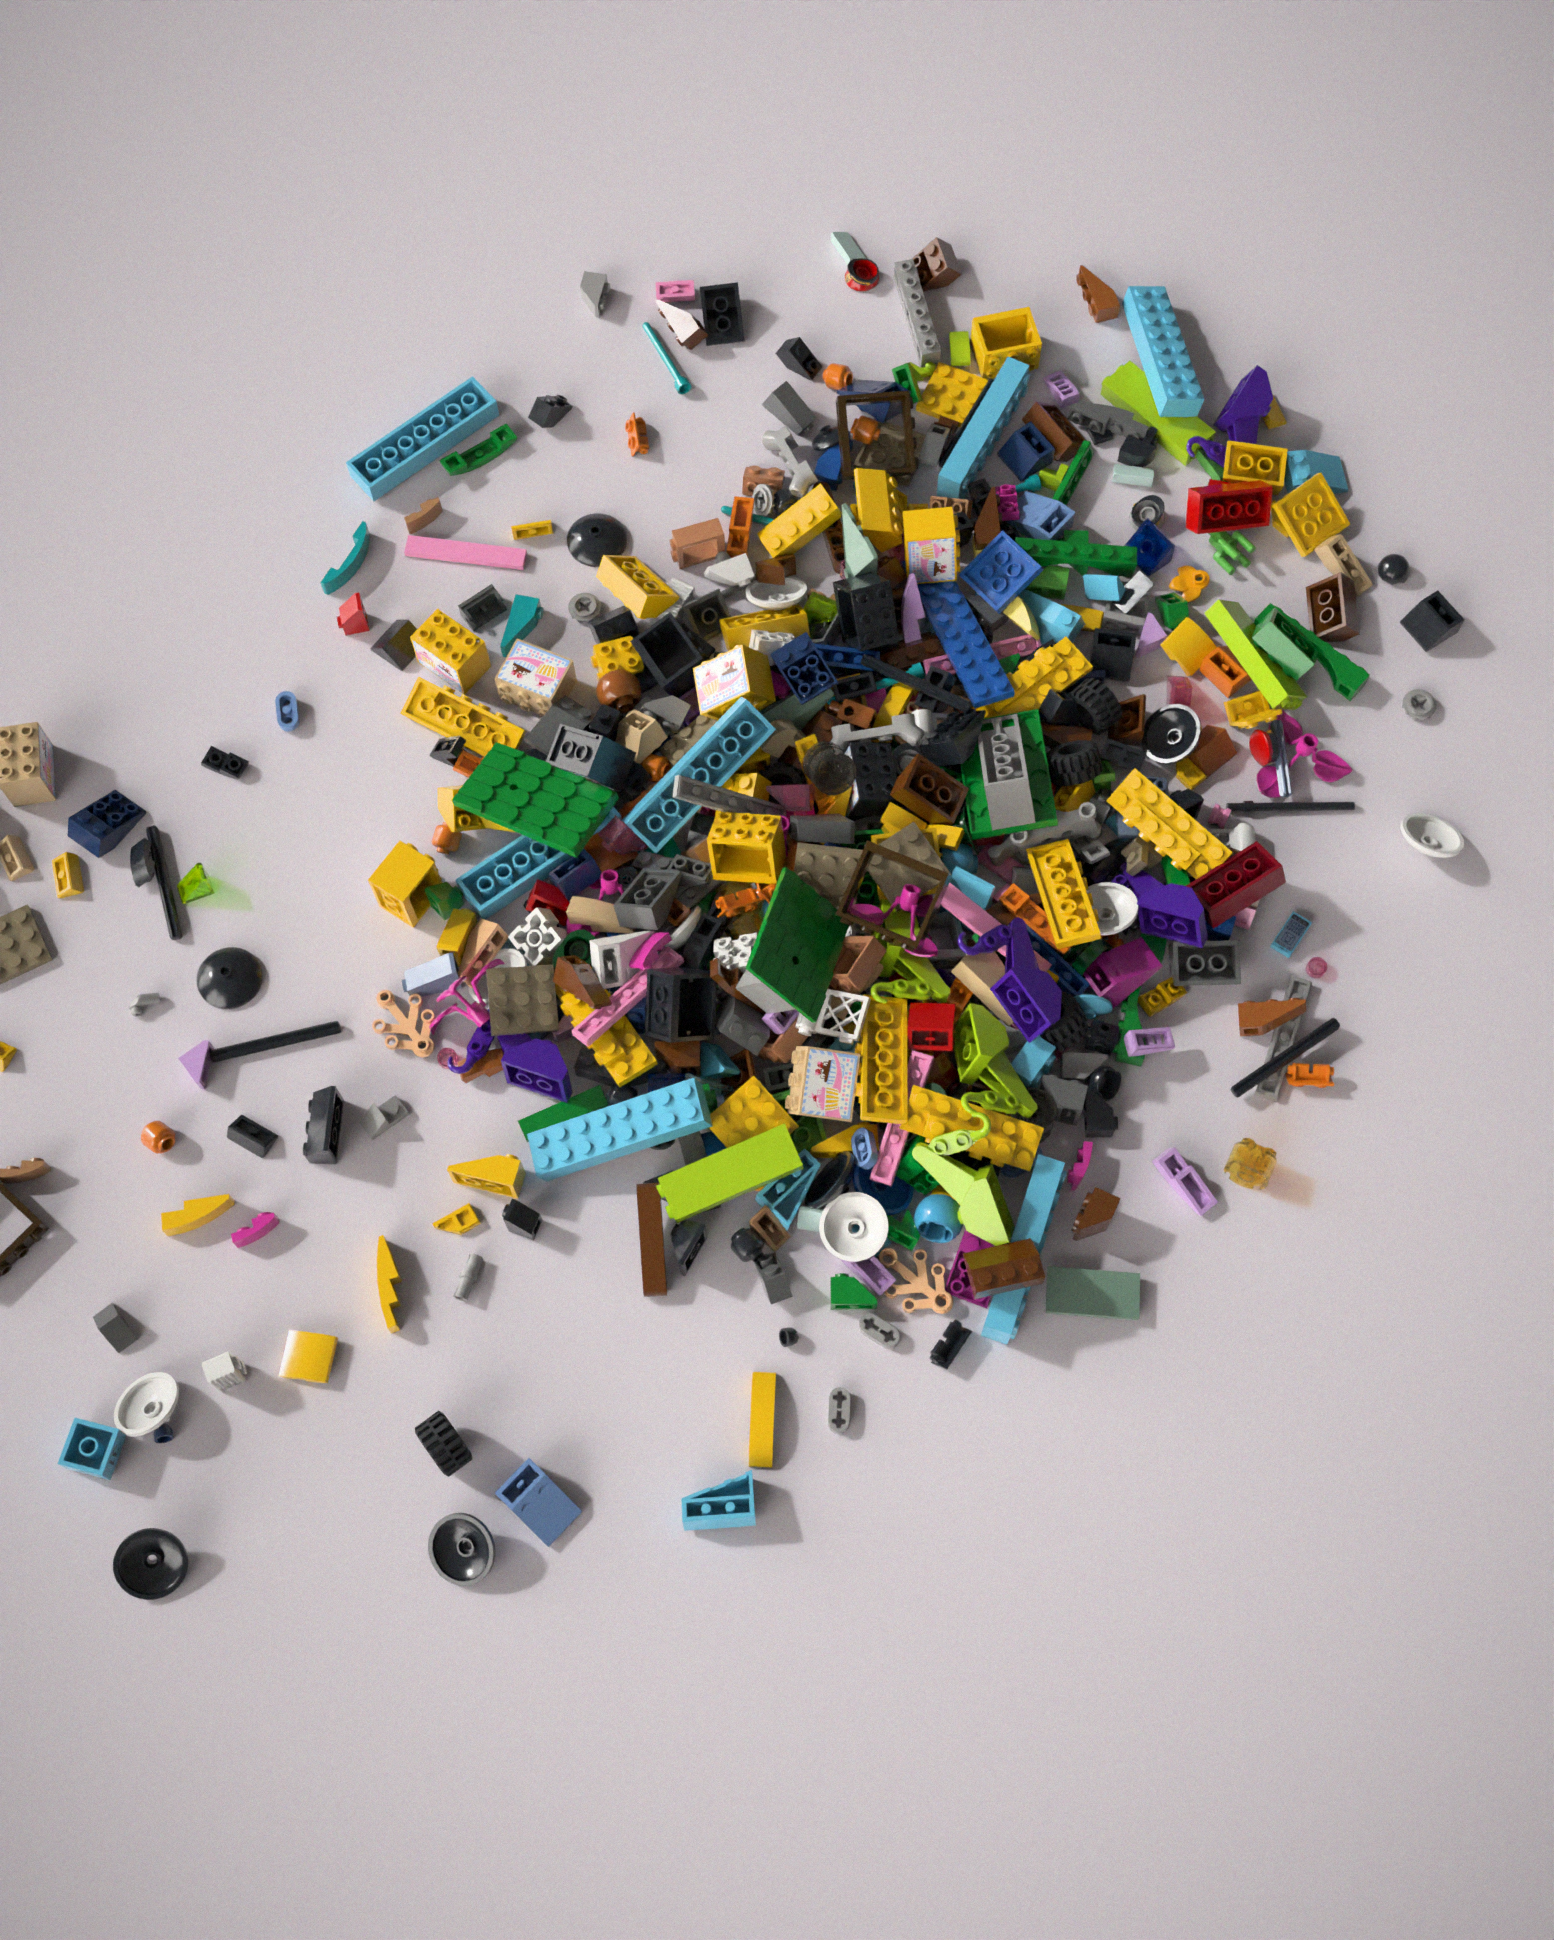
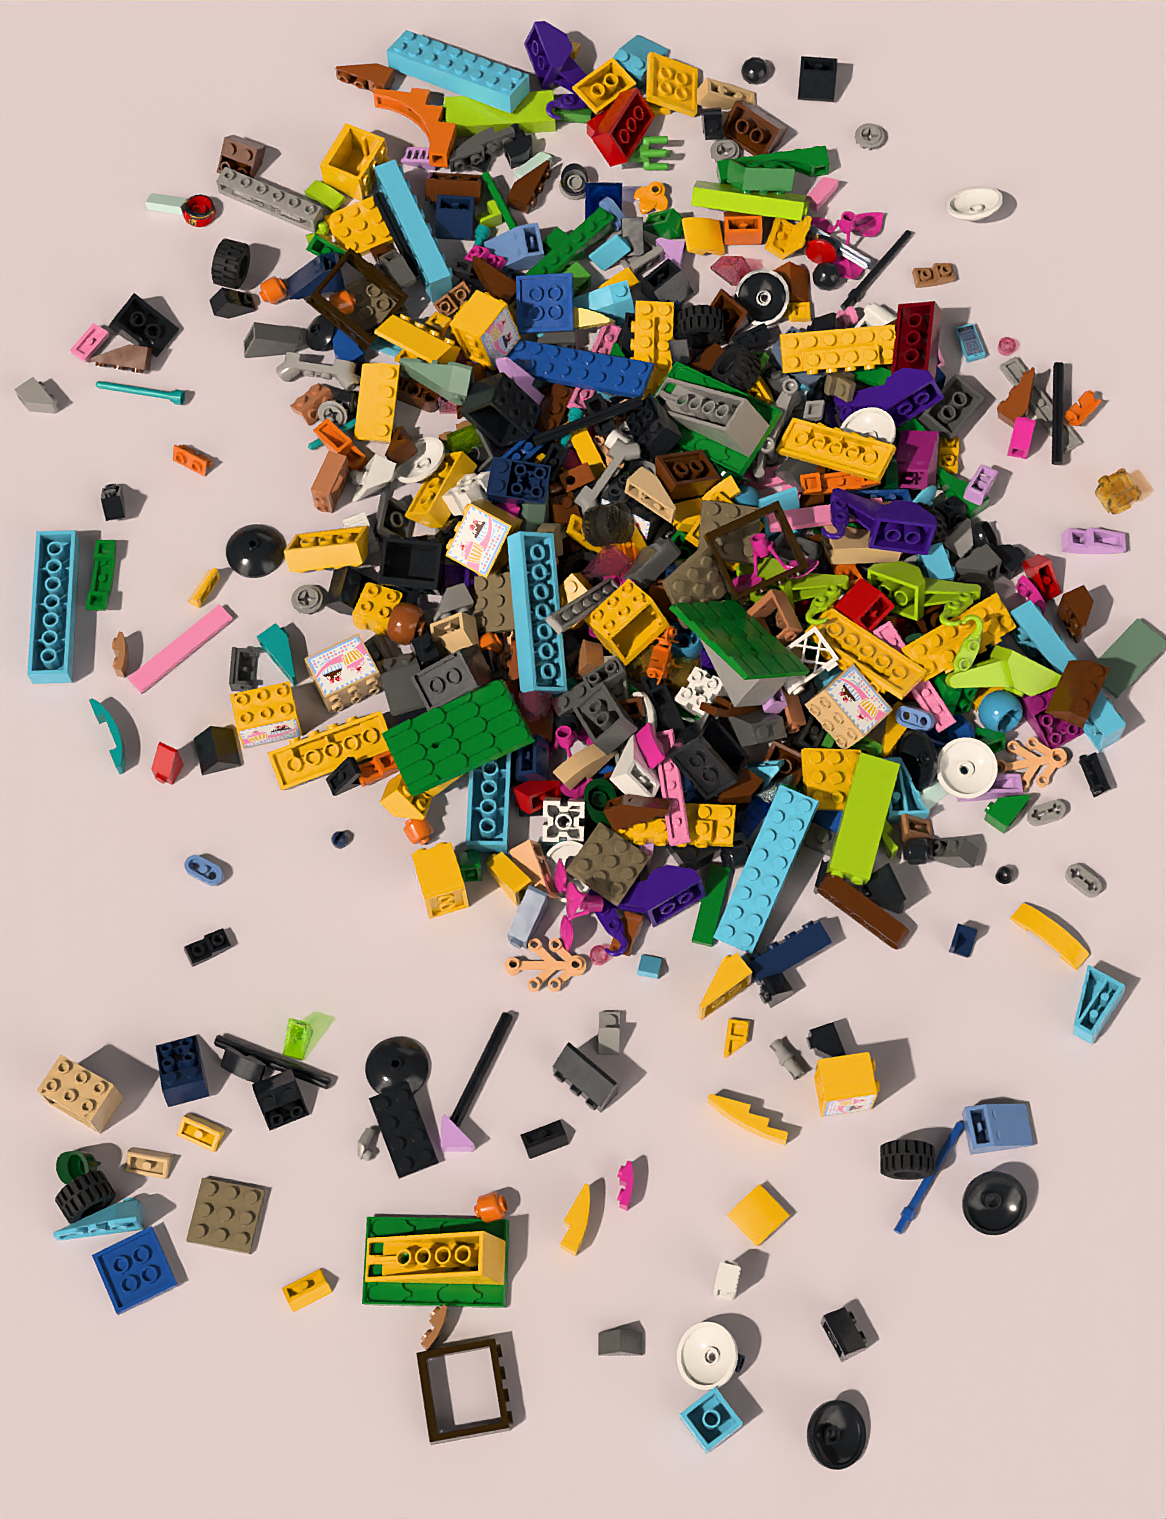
camera: 50 degrees left, 0 degrees up
(82, 1131) = (435, 1262): none -> piece
(134, 910) = (280, 1099): none -> black slope
(175, 1022) = (403, 1131): none -> black plate
(247, 1504) = (843, 1334): none -> black slope
(394, 791) = (342, 842): none -> dark blue hinge
(403, 1482) = (909, 1212): none -> blue bar
(468, 1105) = (649, 966): none -> medium azure slope
(471, 1339) = (846, 1084): none -> yellow container
(507, 1300) = (825, 1041): none -> black slope
(566, 1207) = (789, 952): none -> dark blue brick
(584, 691) = (378, 648): none -> light grey slope
(694, 1346) = (963, 940): none -> dark blue panel
(744, 1204) = (886, 842): none -> lime slope
(828, 328) = (230, 264): none -> black tyre
(884, 769) = (649, 491): none -> tan slope
(1104, 350) = (418, 108): none -> orange arch
(1108, 484) = (526, 189): none -> reddish brown slope
(1108, 1161) = (1042, 575): none -> red slope
(1143, 559) = (611, 207): none -> medium blue plate
(1230, 1043) = (1021, 437): none -> dark pink slope
(1244, 770) = (826, 276): none -> black hair
(1299, 602) = (728, 146): none -> light grey gear
(1305, 573) = (712, 123): none -> black brick
(1324, 708) = (821, 192): none -> bright pink slope
(1329, 857) = (937, 275): none -> medium nougat slope

